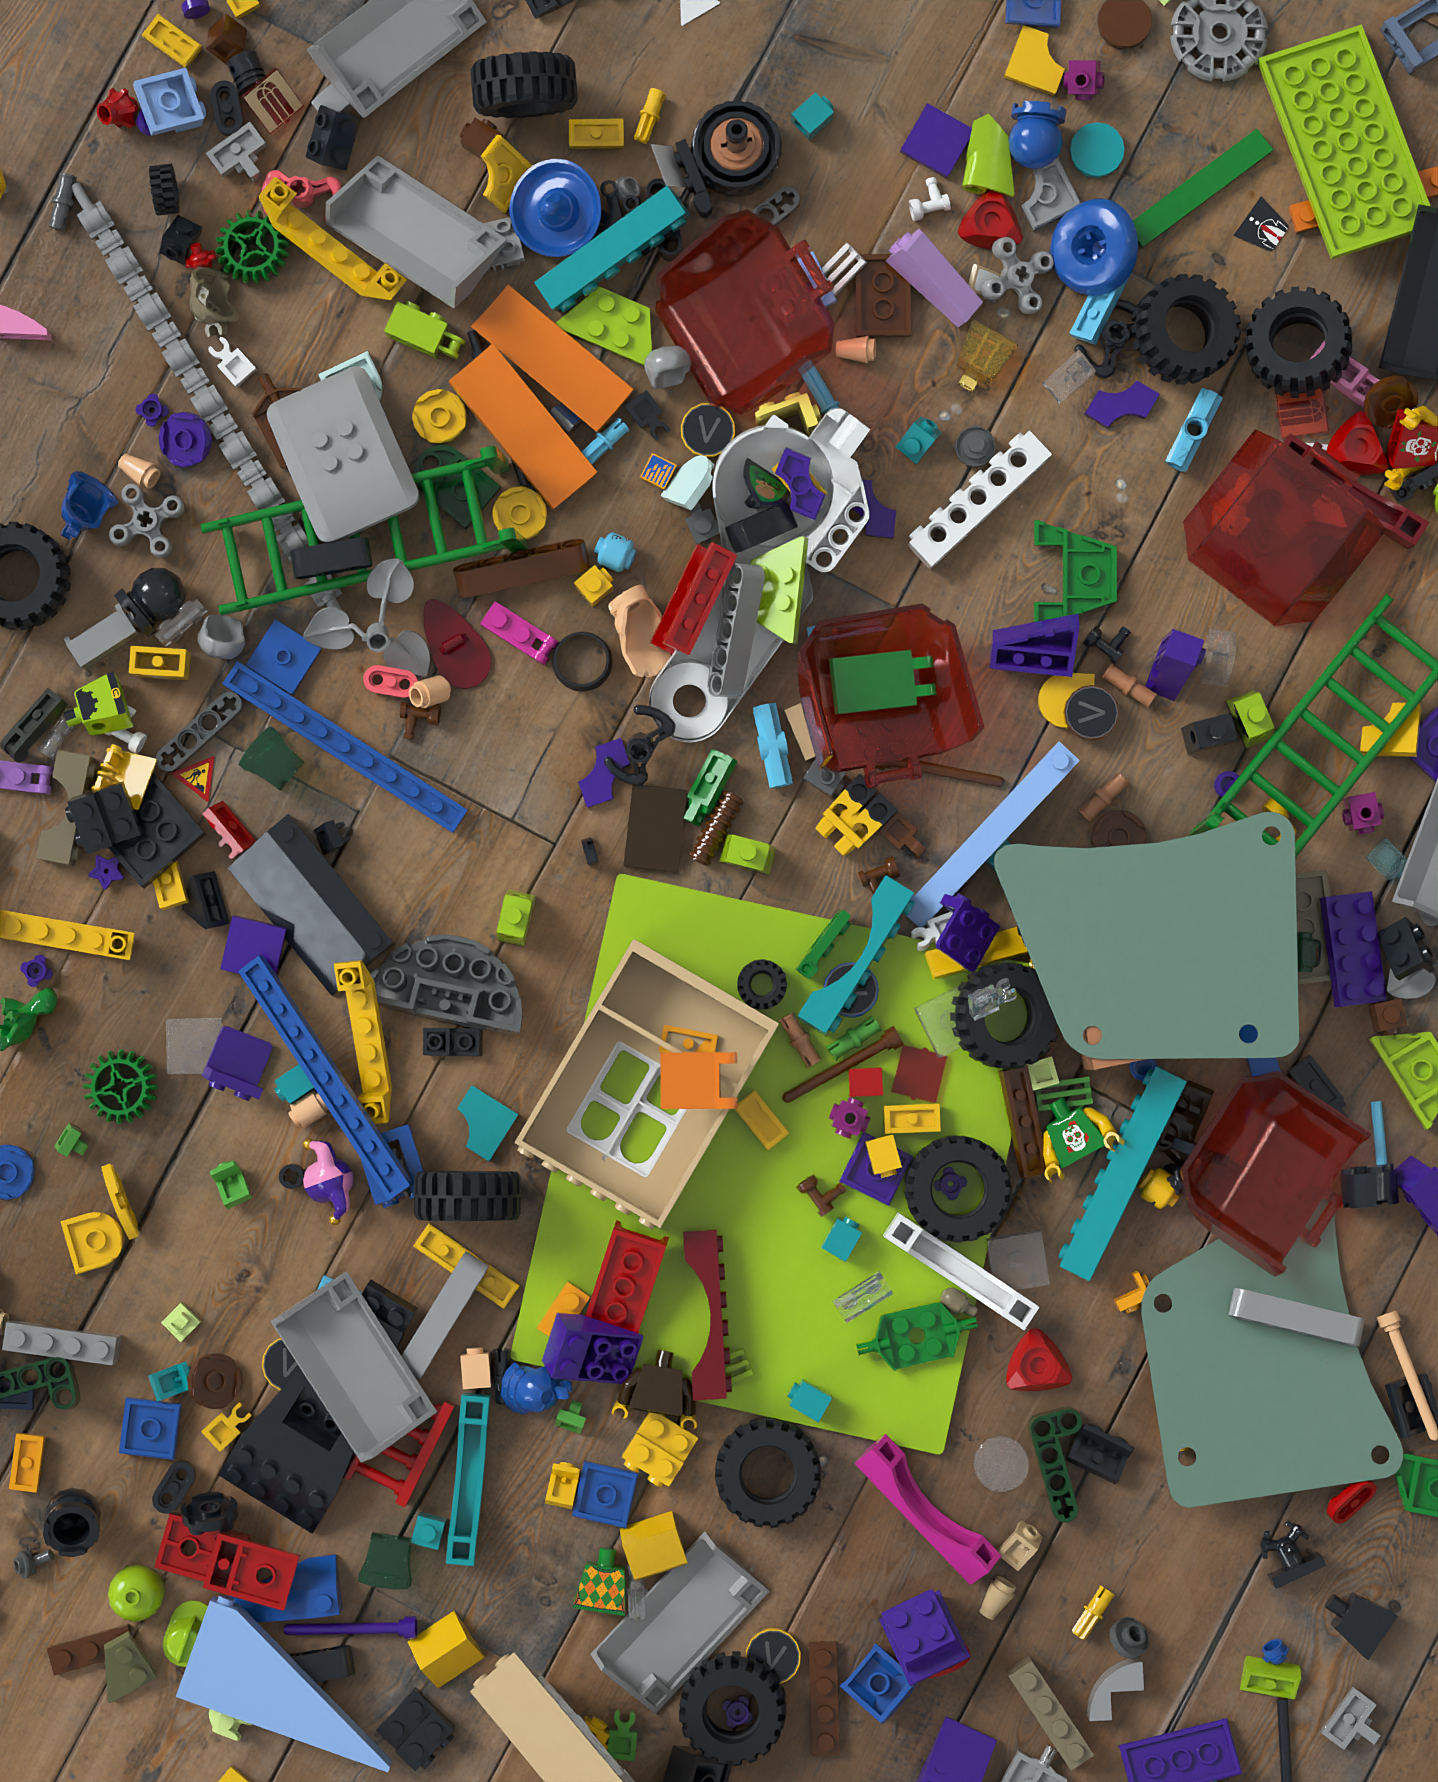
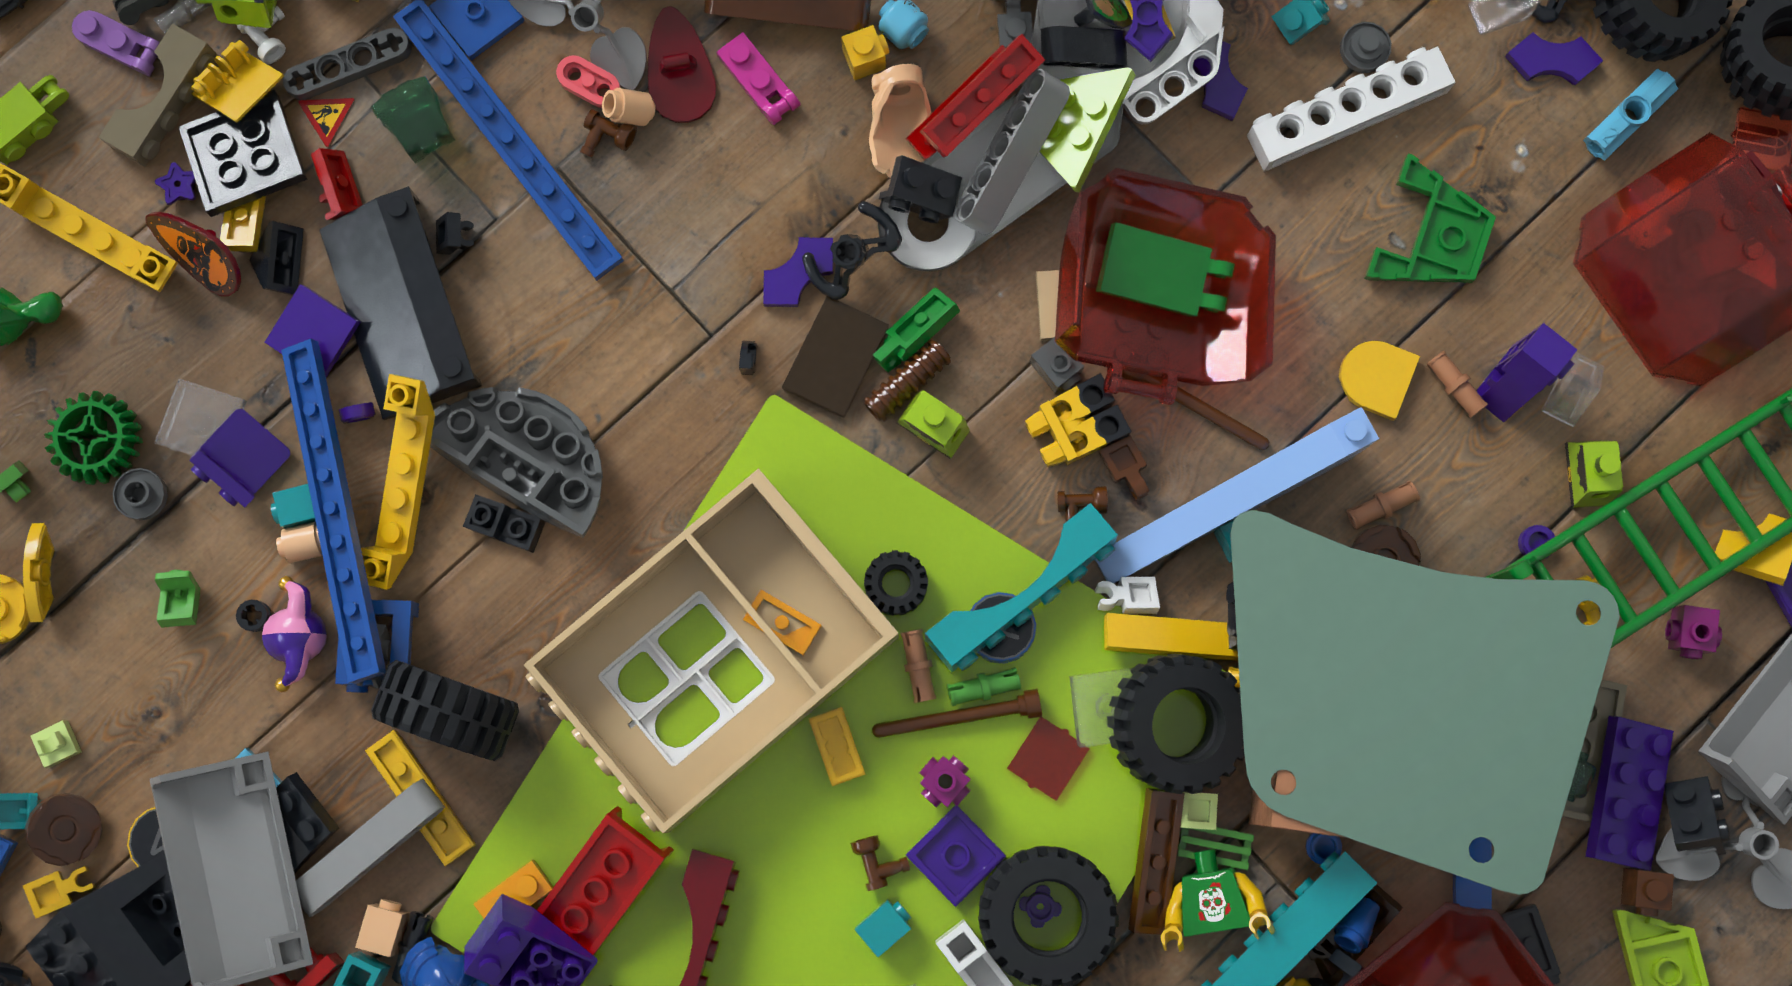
camera: 20 degrees right, 5 degrees down
(29, 967) = (42, 268): dark purple plate -> none
(103, 817) = (191, 115): black plate -> none
(144, 919) = (197, 252): none -> shield
(173, 1116) = (140, 494): none -> dark grey plate
(311, 998) = (357, 412): none -> dark purple tile
(487, 1122) = (509, 633): teal tile -> none
(515, 917) = (630, 402): lime torso -> none
(588, 686) = (826, 165): black tyre -> none
(678, 680) = (922, 190): none -> black bracket
(694, 1080) = (770, 666): orange flag -> none
(772, 745) = (1008, 308): medium azure piece -> none
(823, 944) = (986, 561): green hinge -> none
(865, 1082) = (979, 744): red panel -> none
(883, 1155) = (970, 842): yellow brick -> none
(912, 1118) = (1021, 809): yellow plate -> none
(966, 933) = (1165, 605): dark purple bracket -> none
(987, 1000) = (1166, 692): clear plate -> none
(1037, 647) = (1364, 298): dark purple wedge -> none
(1091, 712) = (1402, 399): black tile -> none
(1110, 649) = (1449, 334): black piece -> none
(1184, 1116) = (1357, 926): none -> blue cone
(1209, 733) = (1540, 472): black torso -> none
(1387, 860) = (1704, 700): clear light blue bracket -> none

